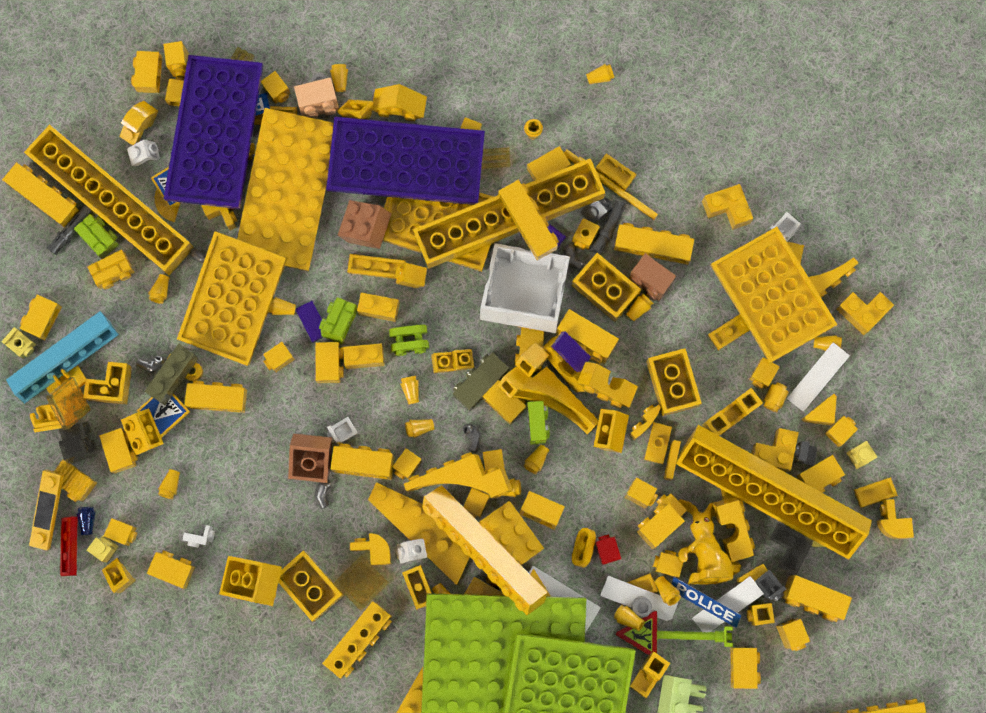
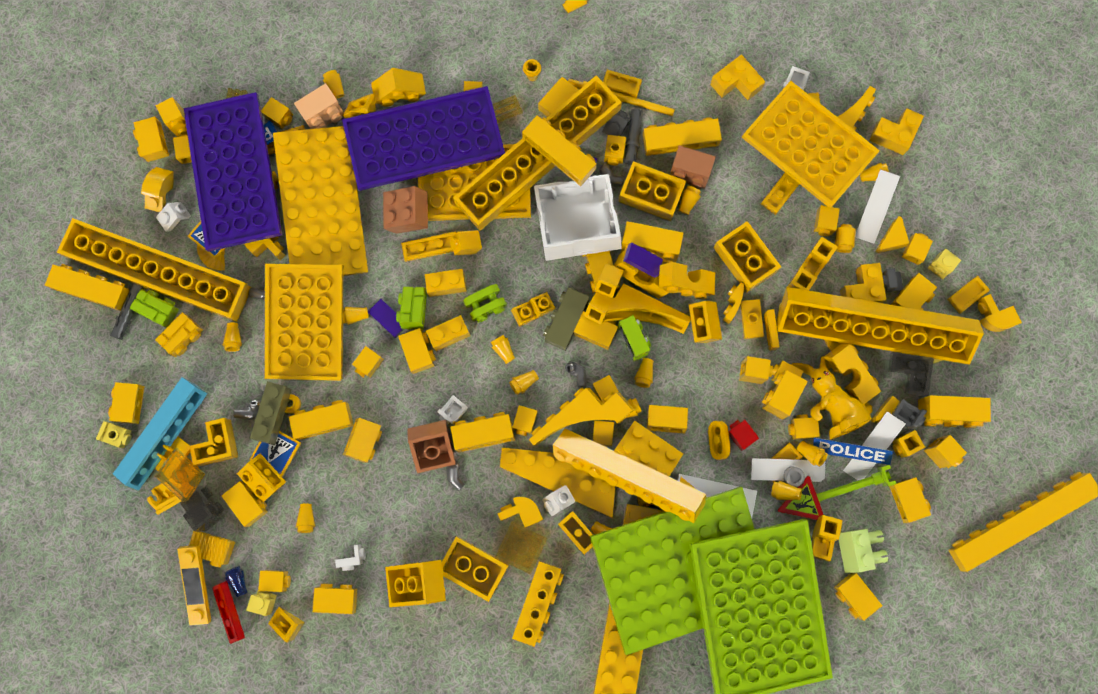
camera: 15 degrees left, 0 degrees up
(248, 430) = (362, 440): none -> yellow brick

